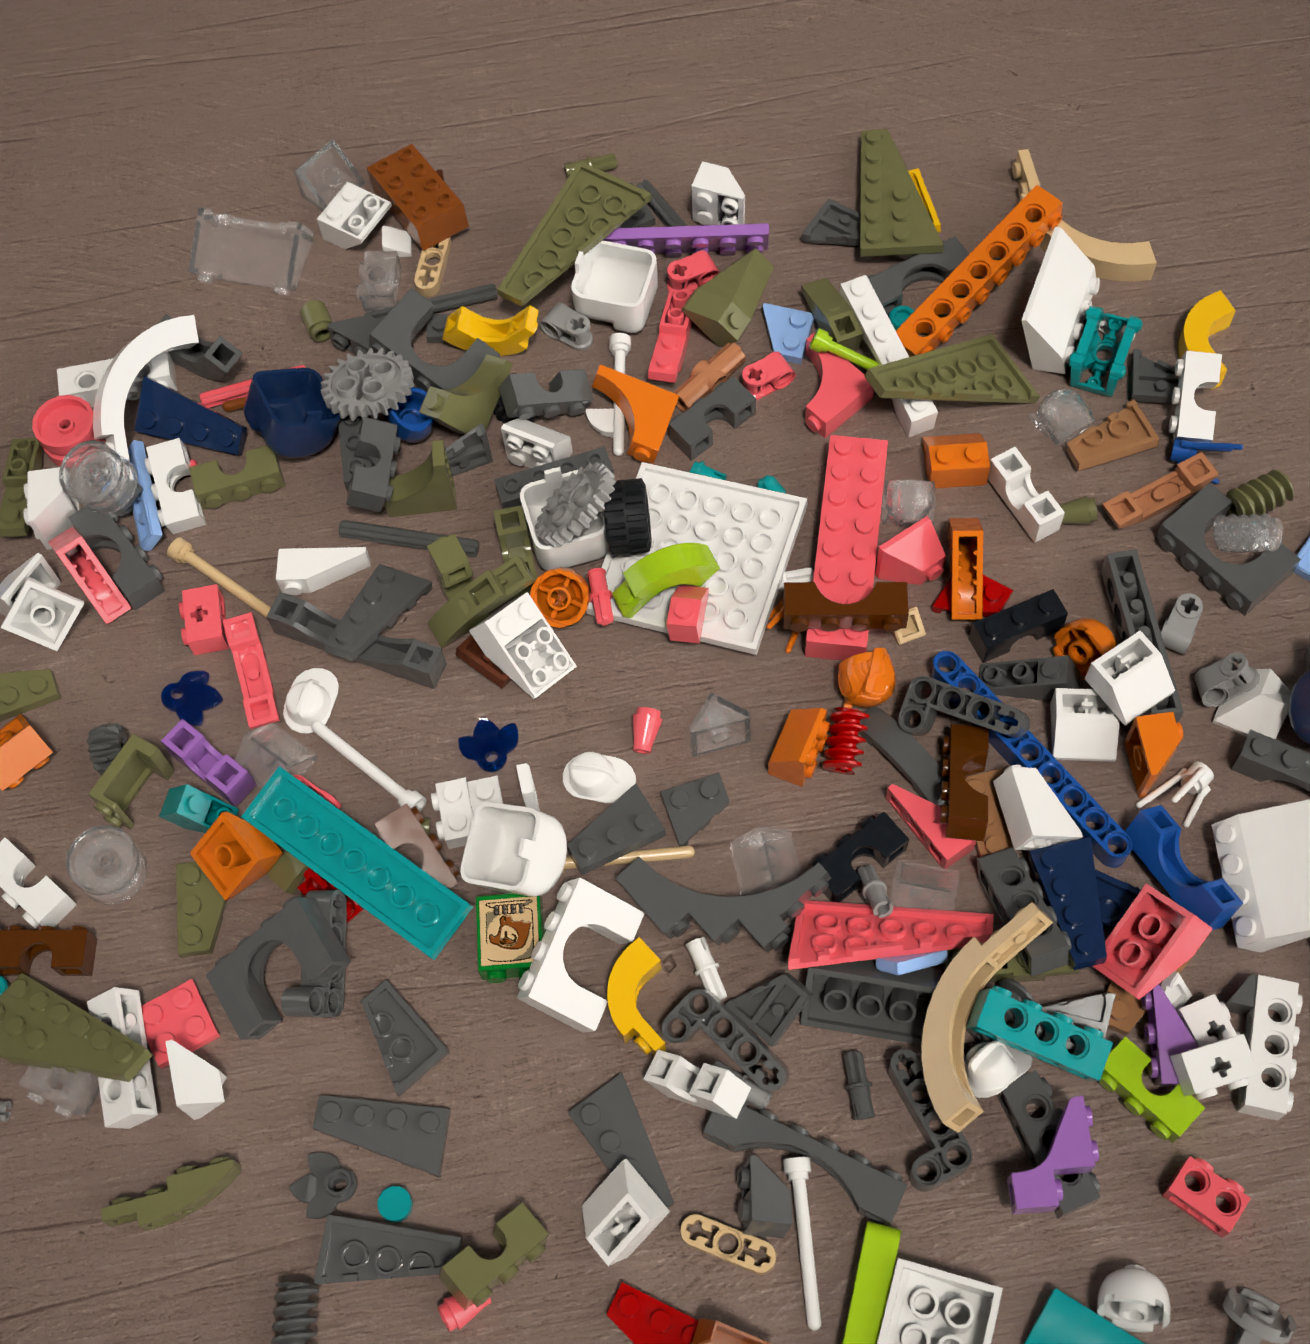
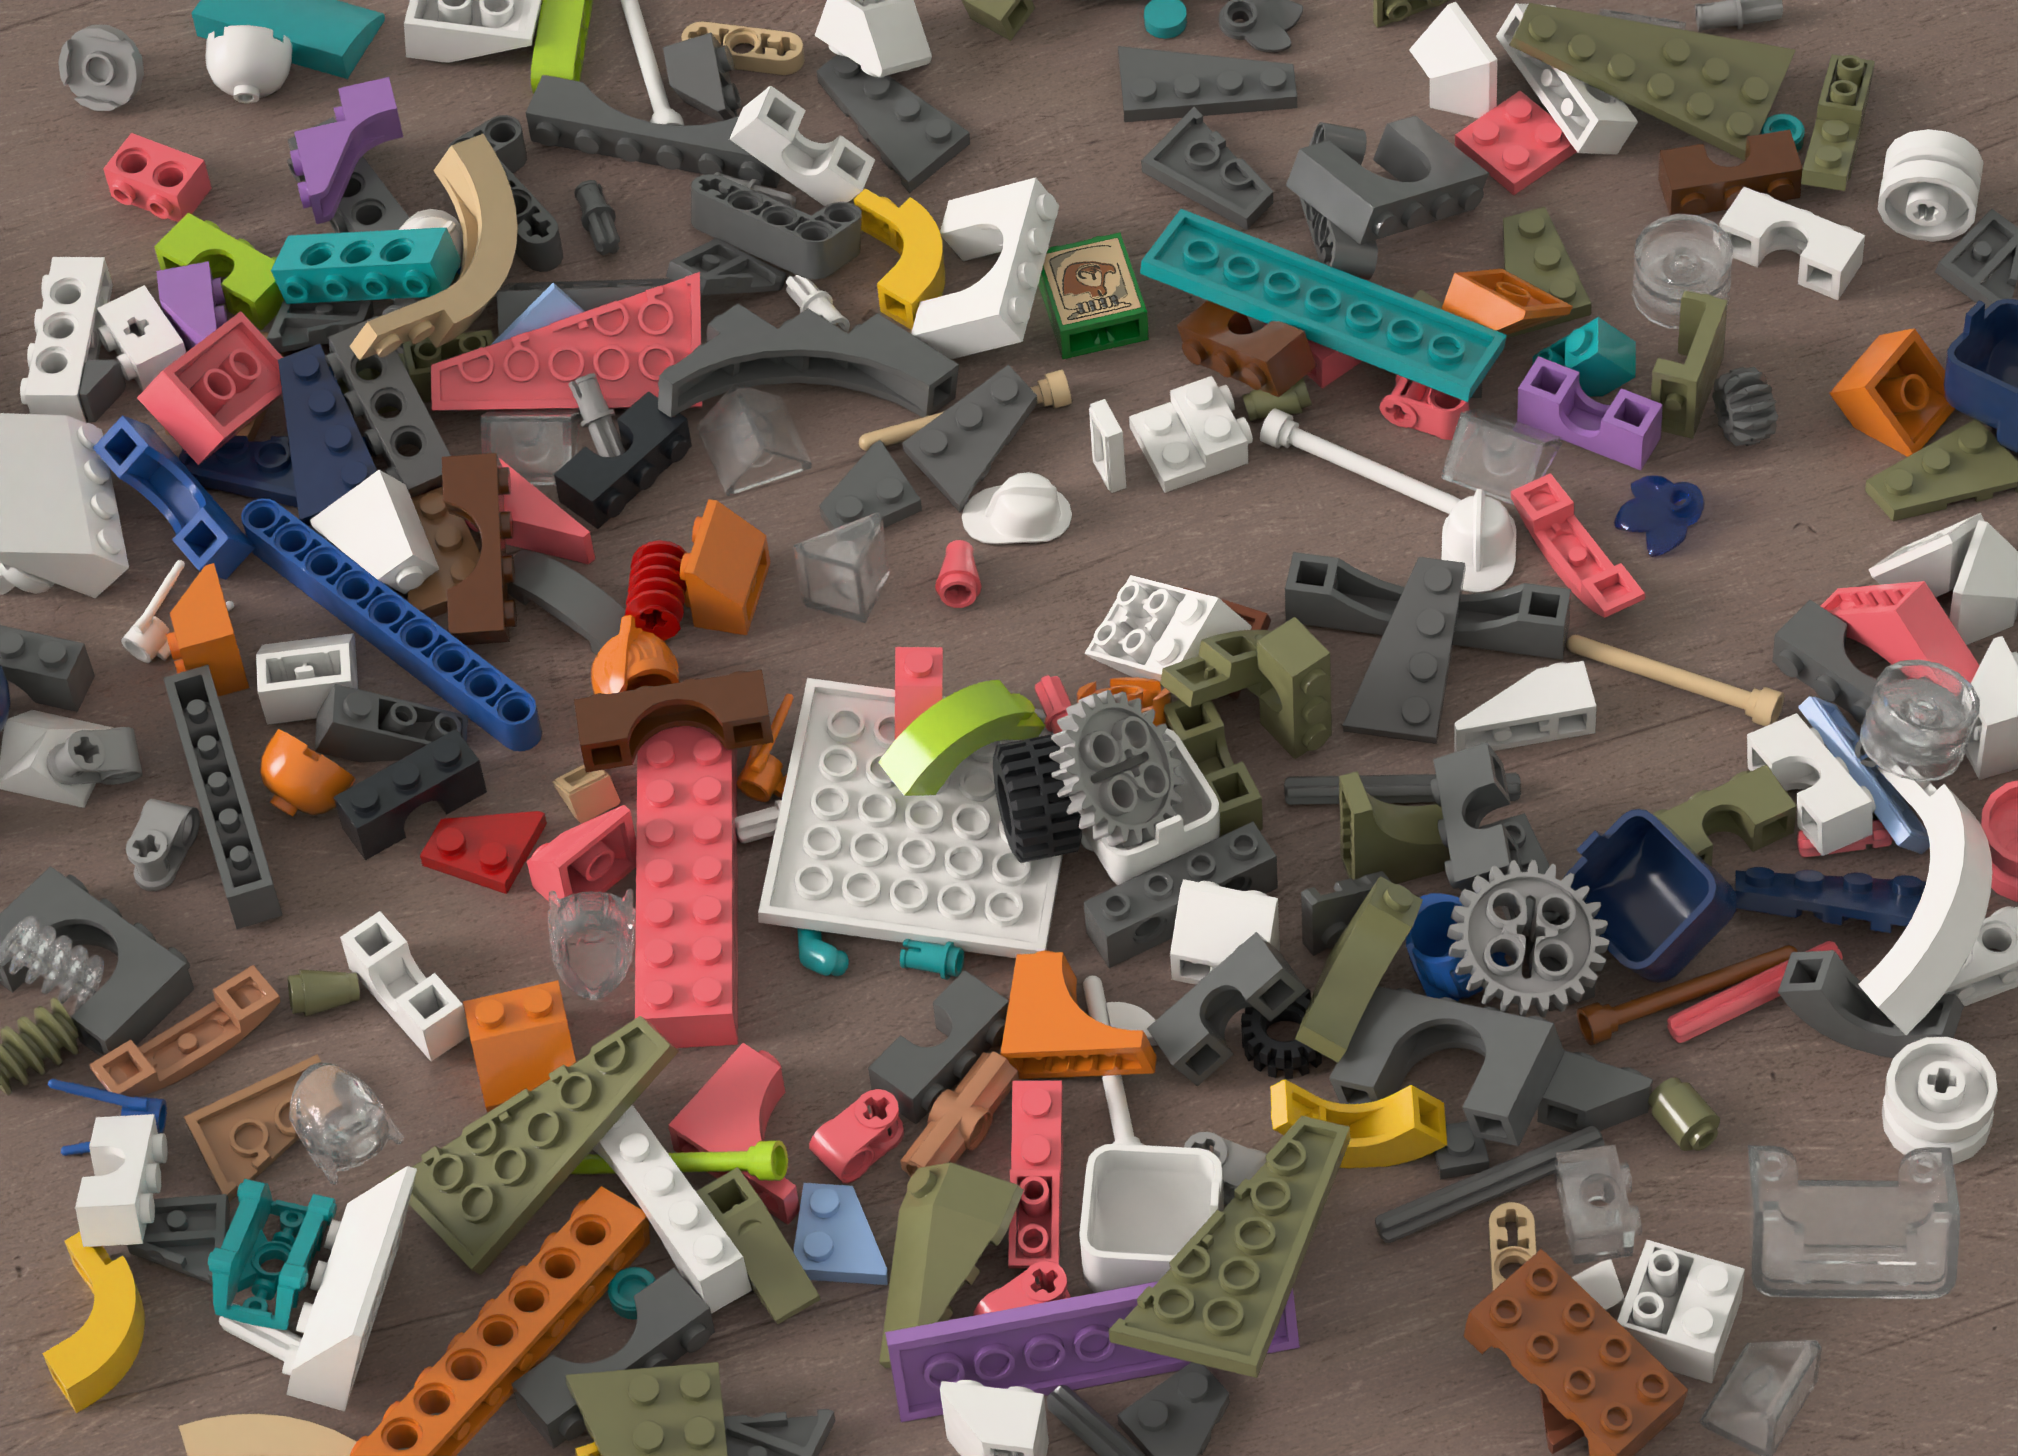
camera: 170 degrees right, 10 degrees down
(181, 293) = (1939, 1097): none -> white wheel
(203, 616) = (1682, 609): coral brick -> none
(489, 741) = (1188, 529): clear blue plate -> none
(514, 850) = (1101, 343): white piece -> none
(966, 568) = (496, 868): orange arch -> none
(966, 710) = (487, 634): dark grey beam -> none
(1131, 677) = (245, 684): white slope -> none
(1195, 1071) = (142, 269): white brick -> none

